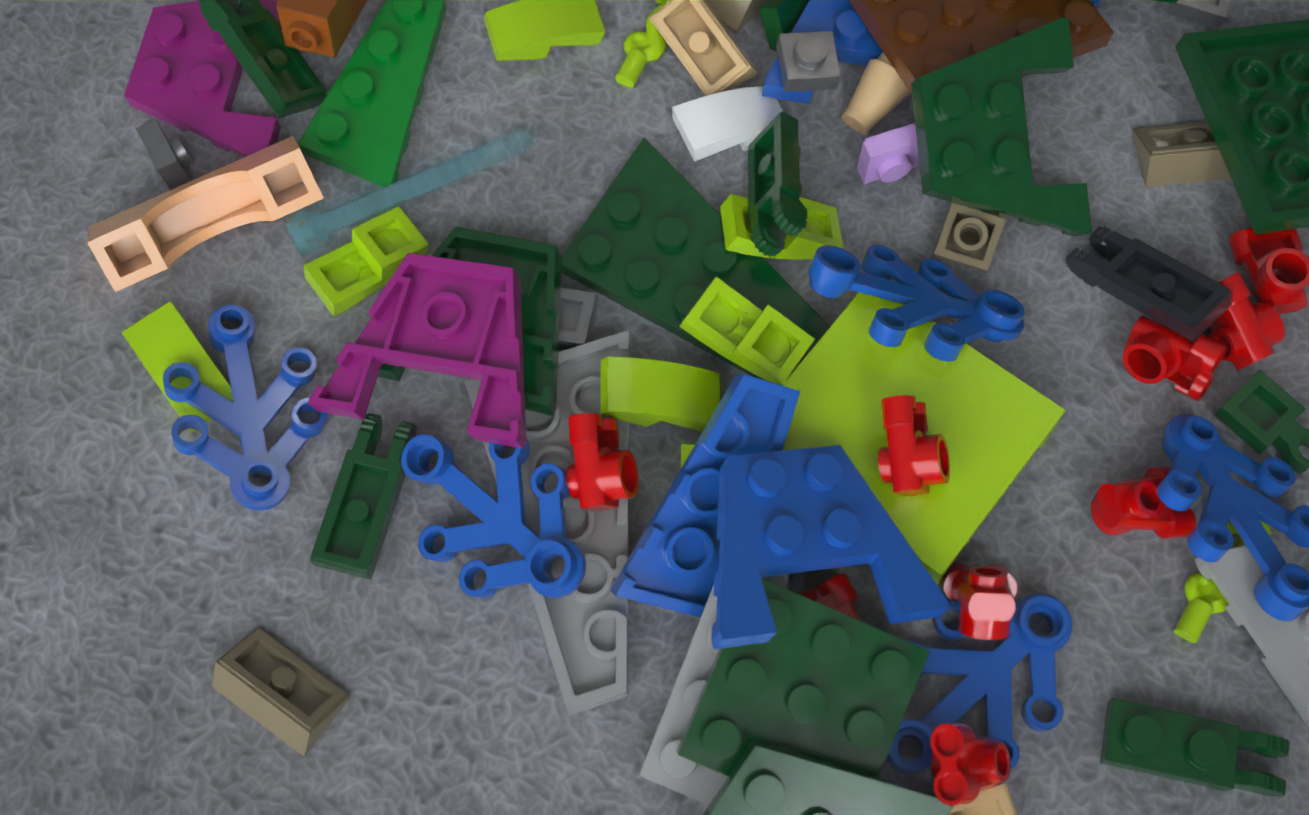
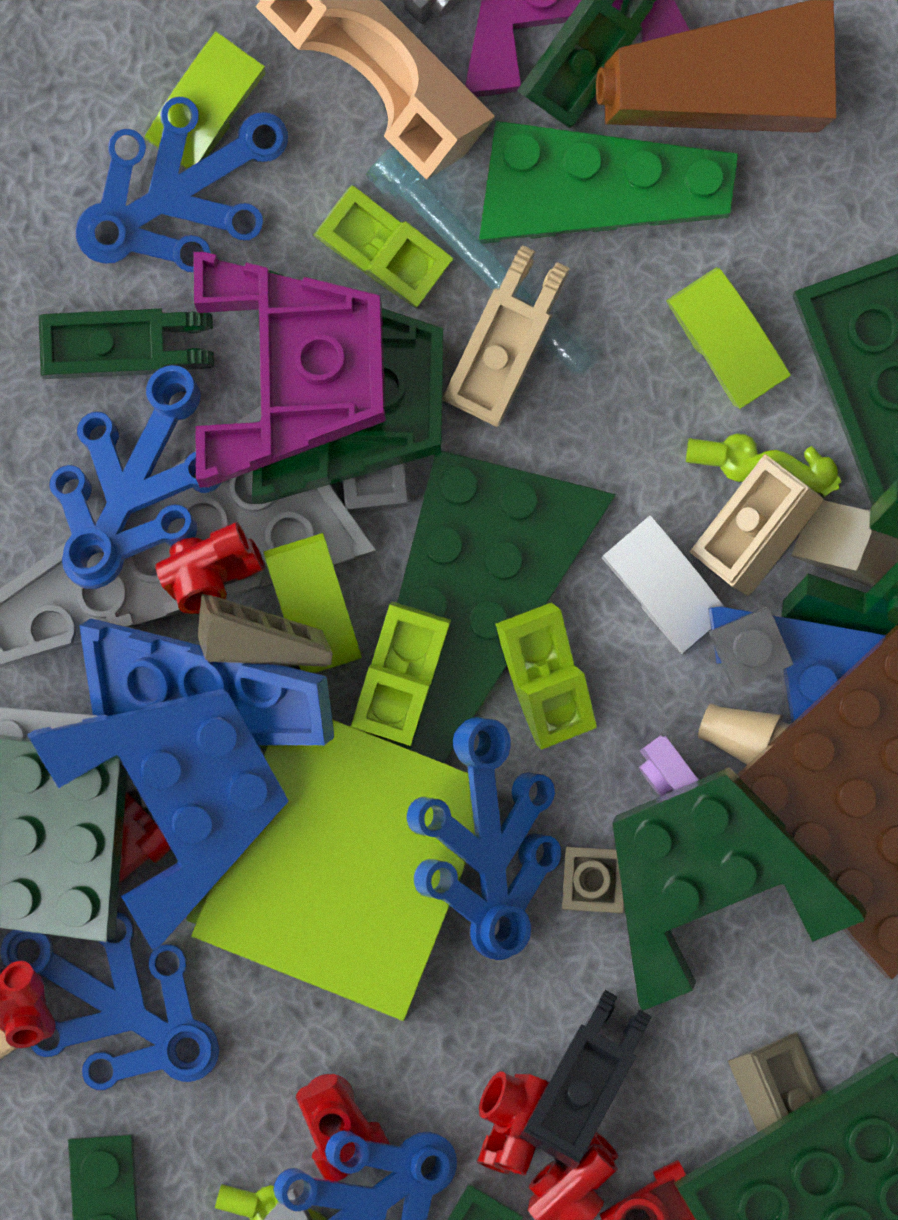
camera: 70 degrees right, 15 degrees up
(485, 179) = (504, 343): none -> tan hinge
(676, 440) = (247, 635): none -> dark tan slope
(775, 185) = (582, 654): dark green hinge -> none
(911, 457) = (295, 871): red plate -> none
(984, 599) = (190, 984): red plate -> none

